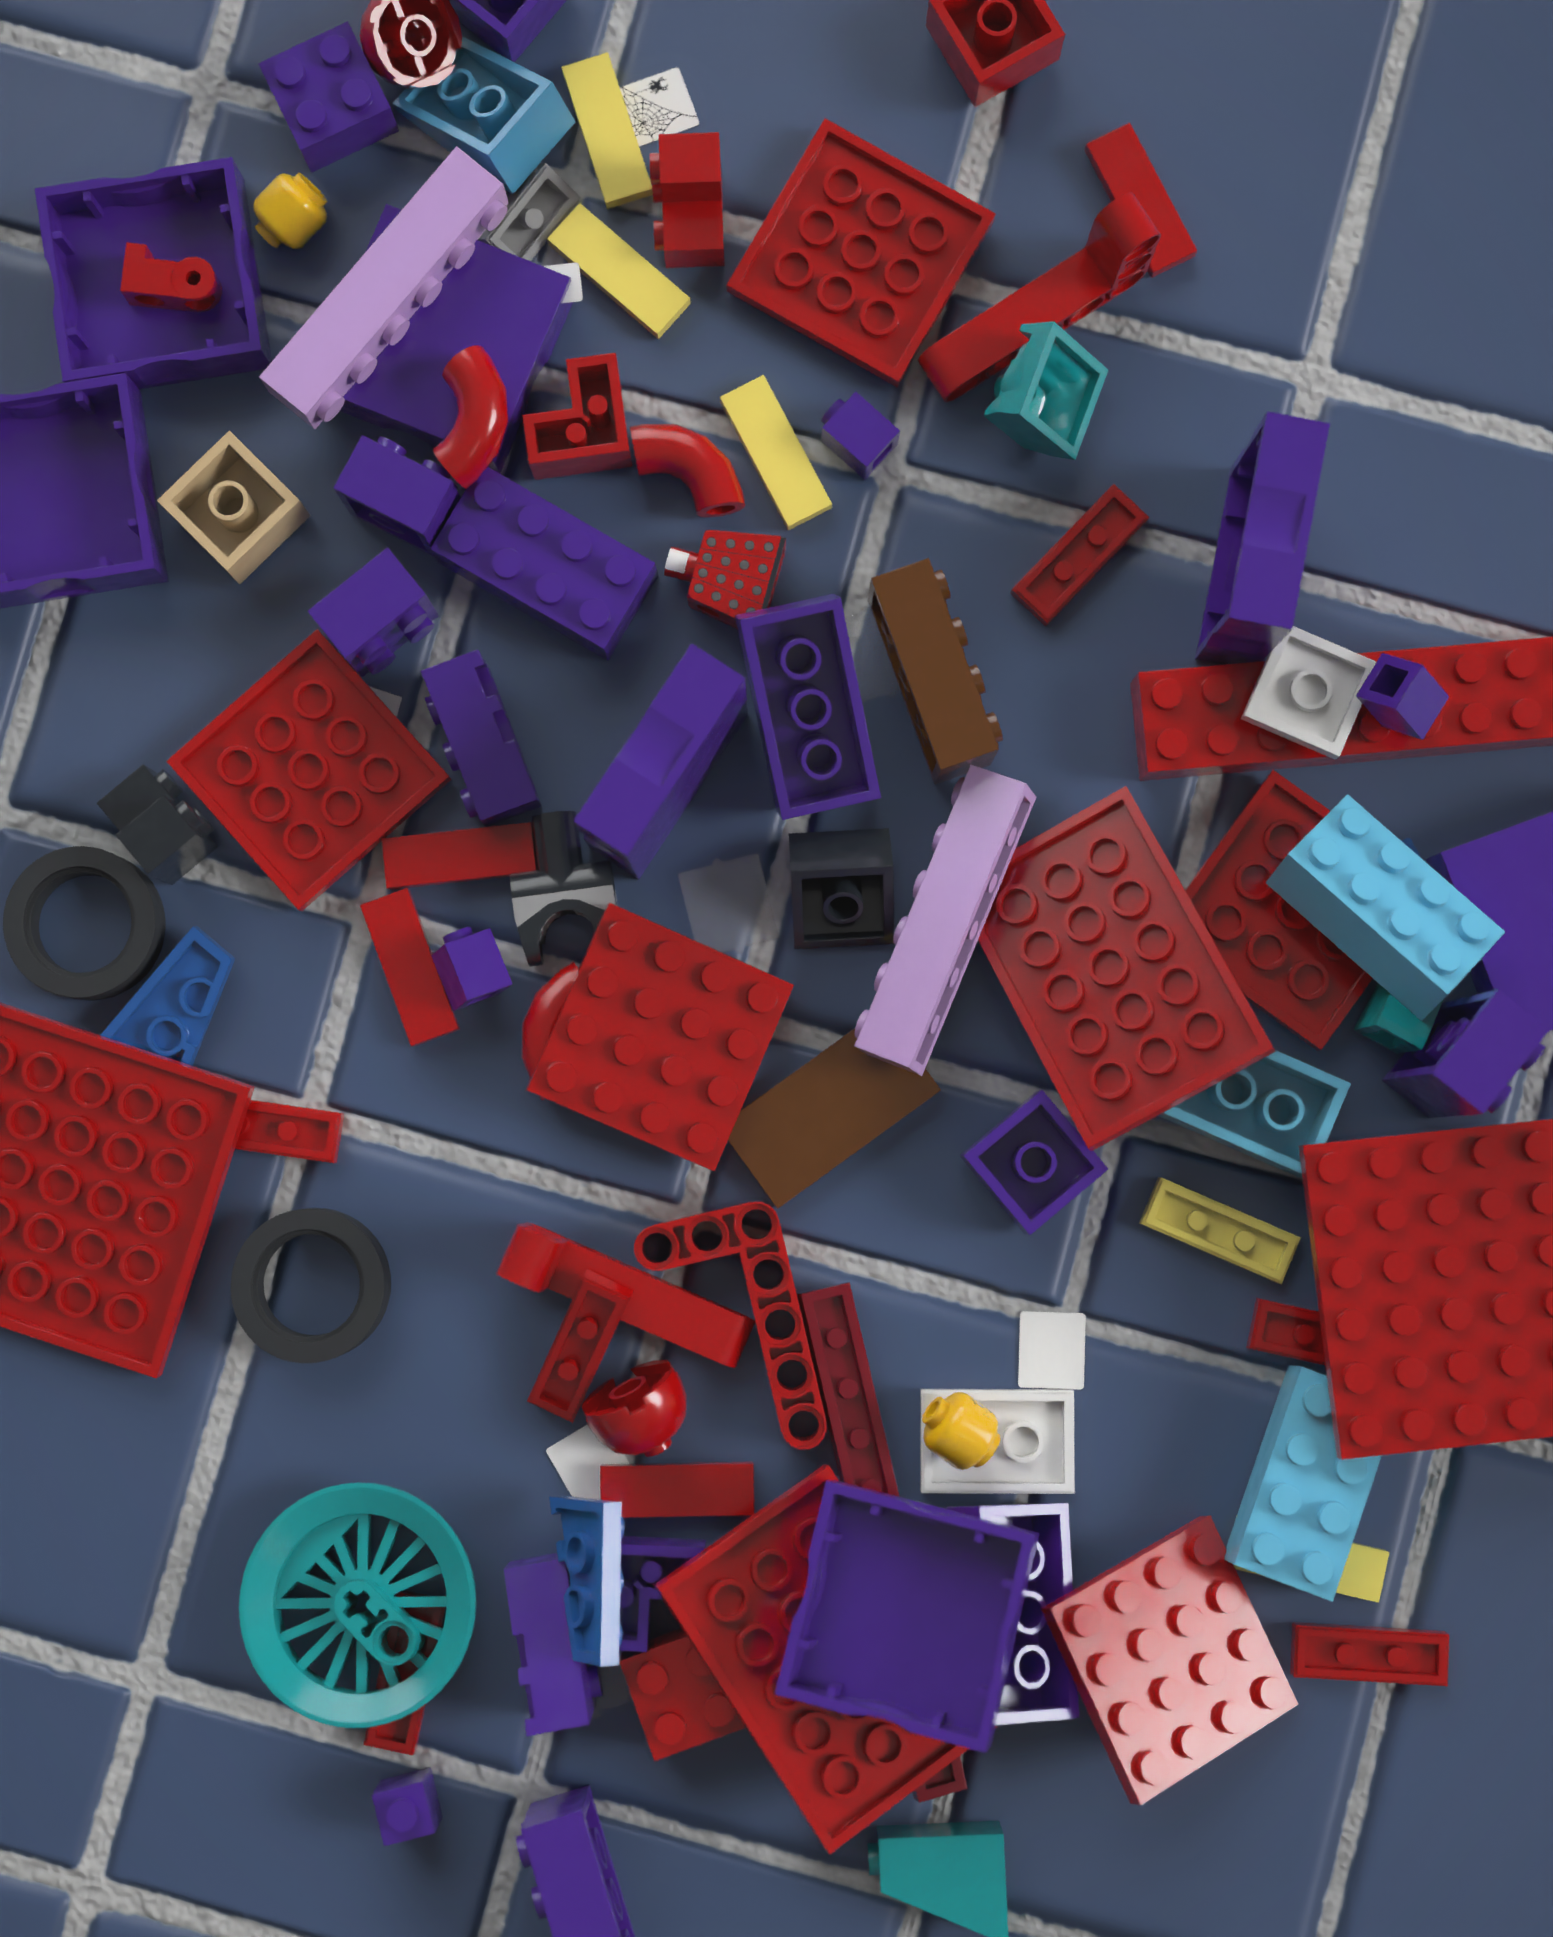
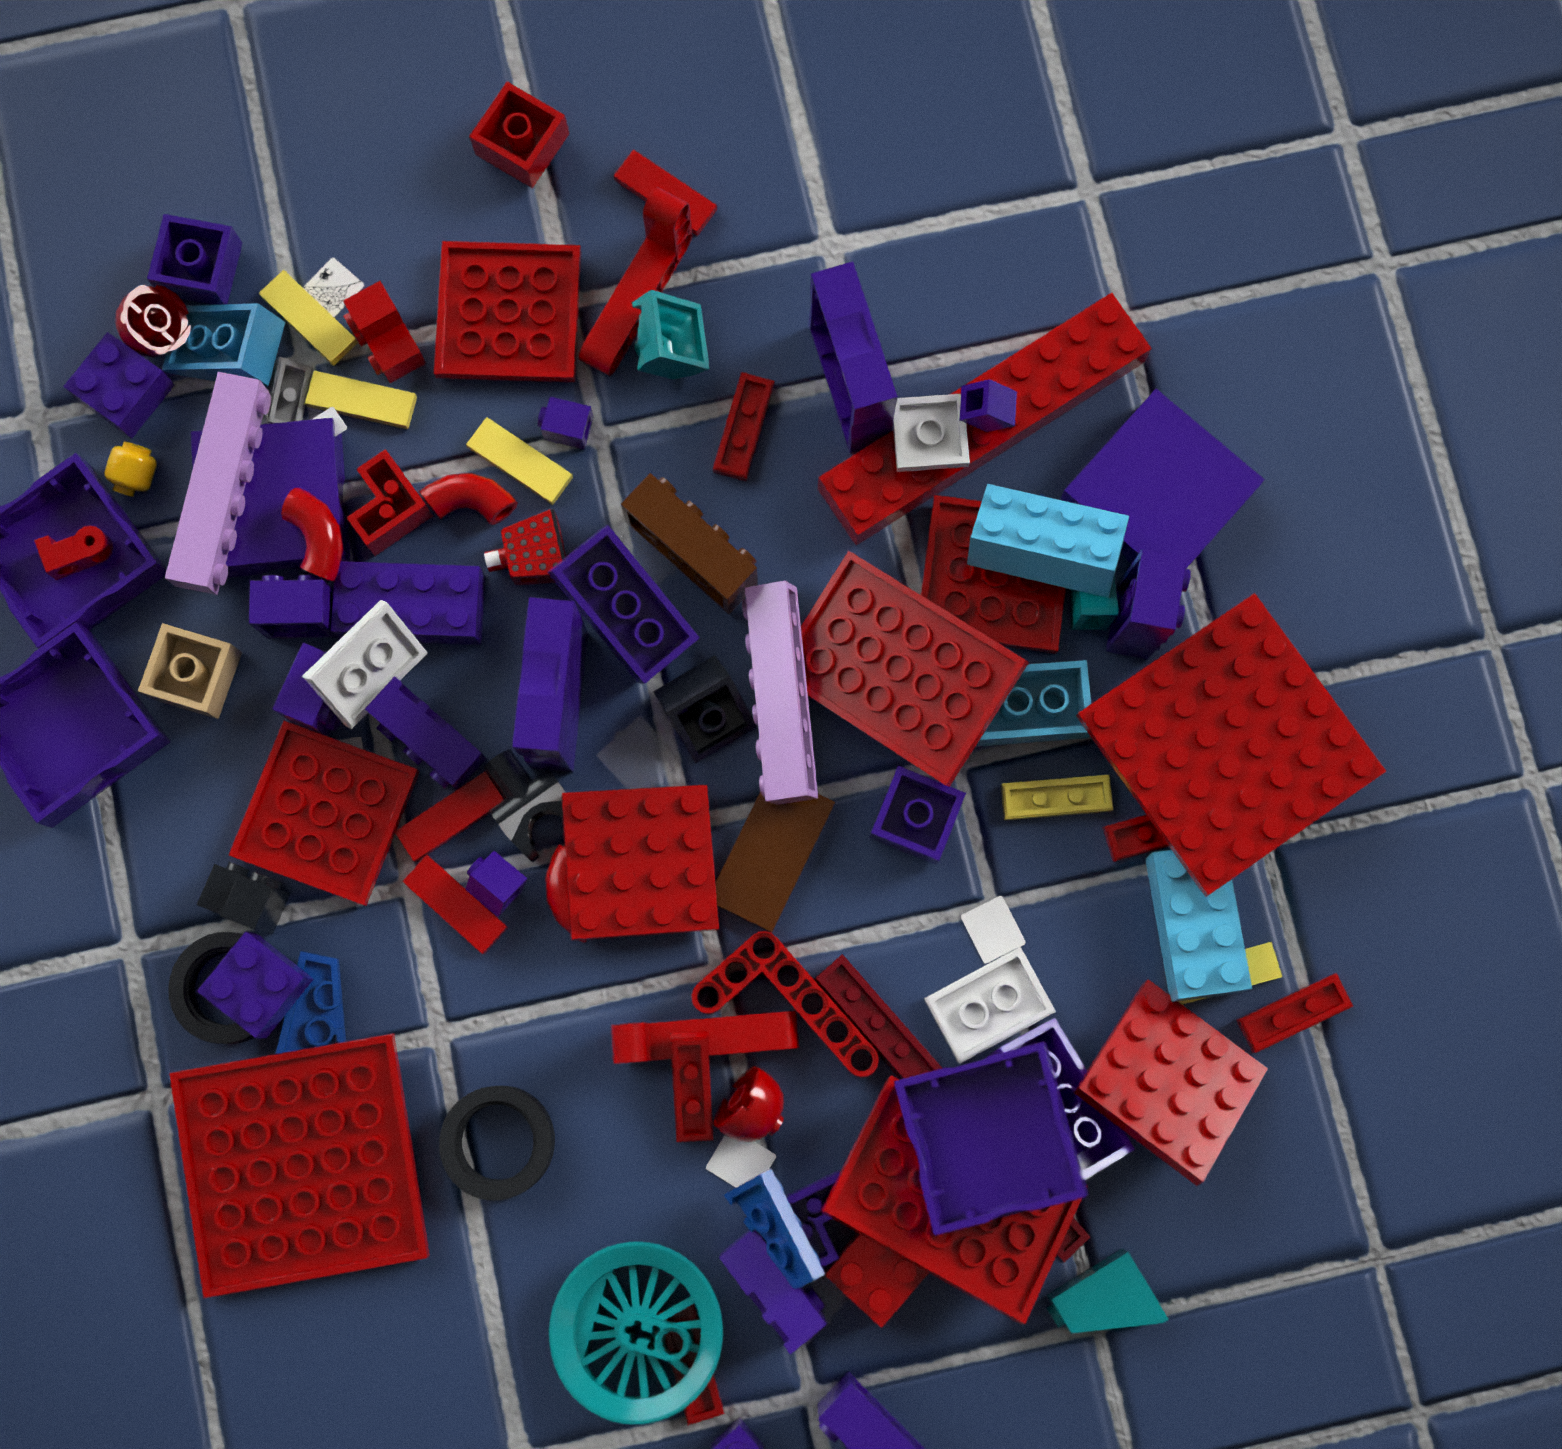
camera: 30 degrees left, 5 degrees down
(116, 941) = (255, 985): none -> dark purple brick
(291, 1131) = (433, 1050): red tile -> none
(450, 613) = (364, 663): none -> white tile
(680, 1488) = (805, 1144): red tile -> none
(960, 1431) = (962, 1009): yellow head -> none

